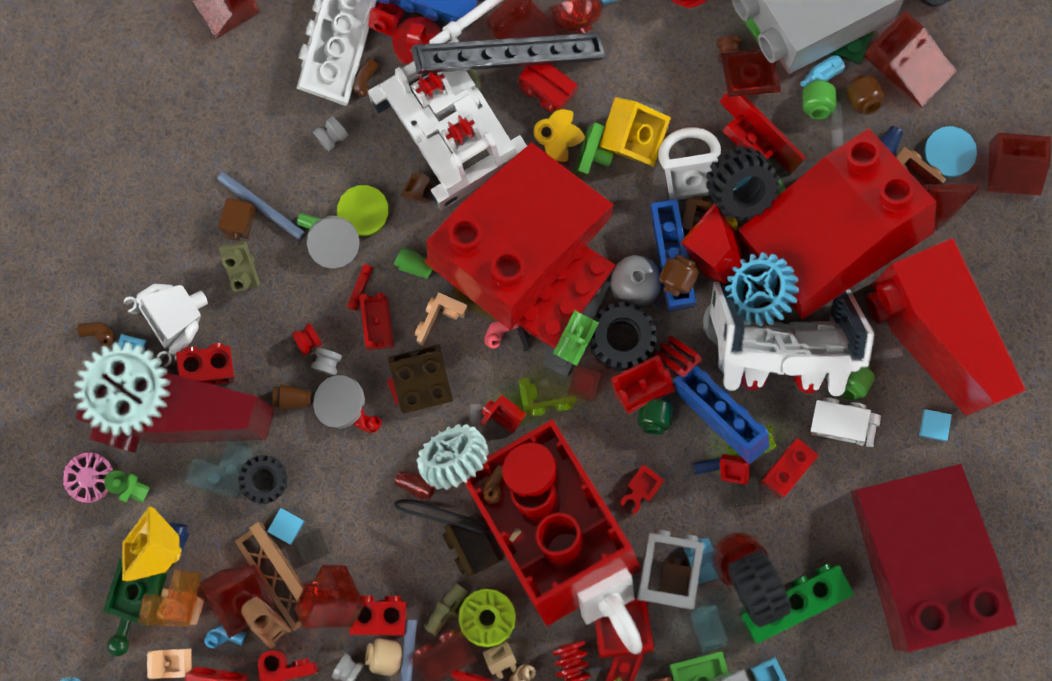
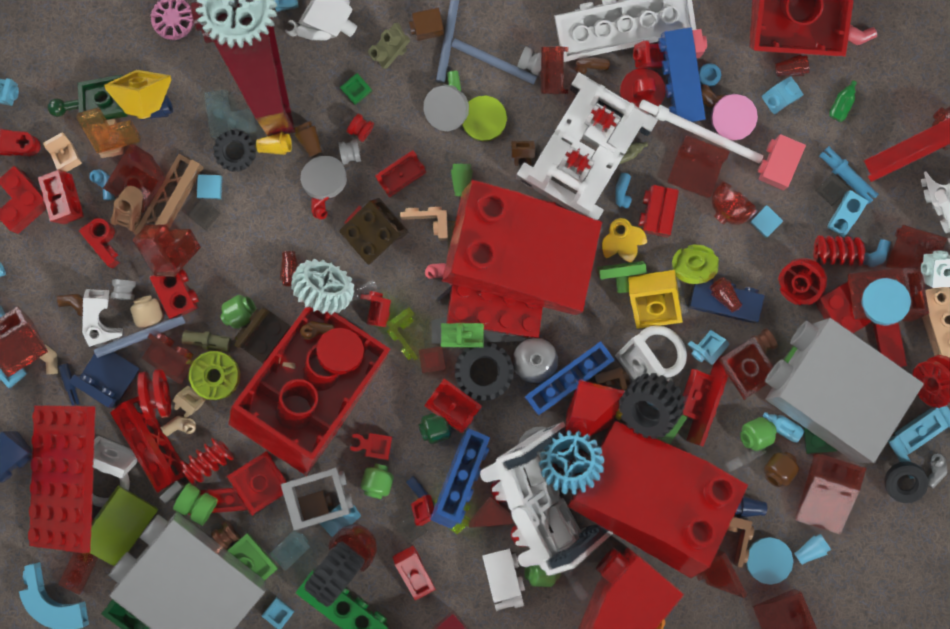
camera: 55 degrees right, 5 degrees up
(125, 485) = (177, 50): bright green hips -> none
(203, 357) = (294, 63): red brick -> none
(264, 324) = (356, 89): none -> green tile
(277, 435) = (275, 144): none -> yellow cone
(310, 172) = (494, 61): none -> sand blue bar
(352, 115) = (553, 70): none -> clear red hinge
(359, 287) = (422, 147): red wheel -> none
(433, 560) = (237, 311): none -> bright green head
(486, 529) = (268, 299): black piece -> none
(504, 110) = (620, 190): none -> dark azure arm
(507, 53) = (663, 166): tile -> none
(608, 599) = (270, 461): white tile -> none
(619, 75) = (695, 264): none -> lime tile
(665, 58) = (725, 293): none -> clear red cone
(668, 349) = (493, 411): red tile -> none
(669, 64) = (702, 300): none -> dark blue brick
(678, 275) = (551, 391): reddish brown head -> none
(681, 502) = (377, 481): none -> bright green head
(709, 104) = (709, 348): none -> medium azure bracket
(775, 397) = (491, 514): none -> clear red slope
(789, 468) = (445, 552): red brick -> none
(793, 511) = (413, 572): none -> plate
(959, 104) = (813, 549): none -> medium azure cone

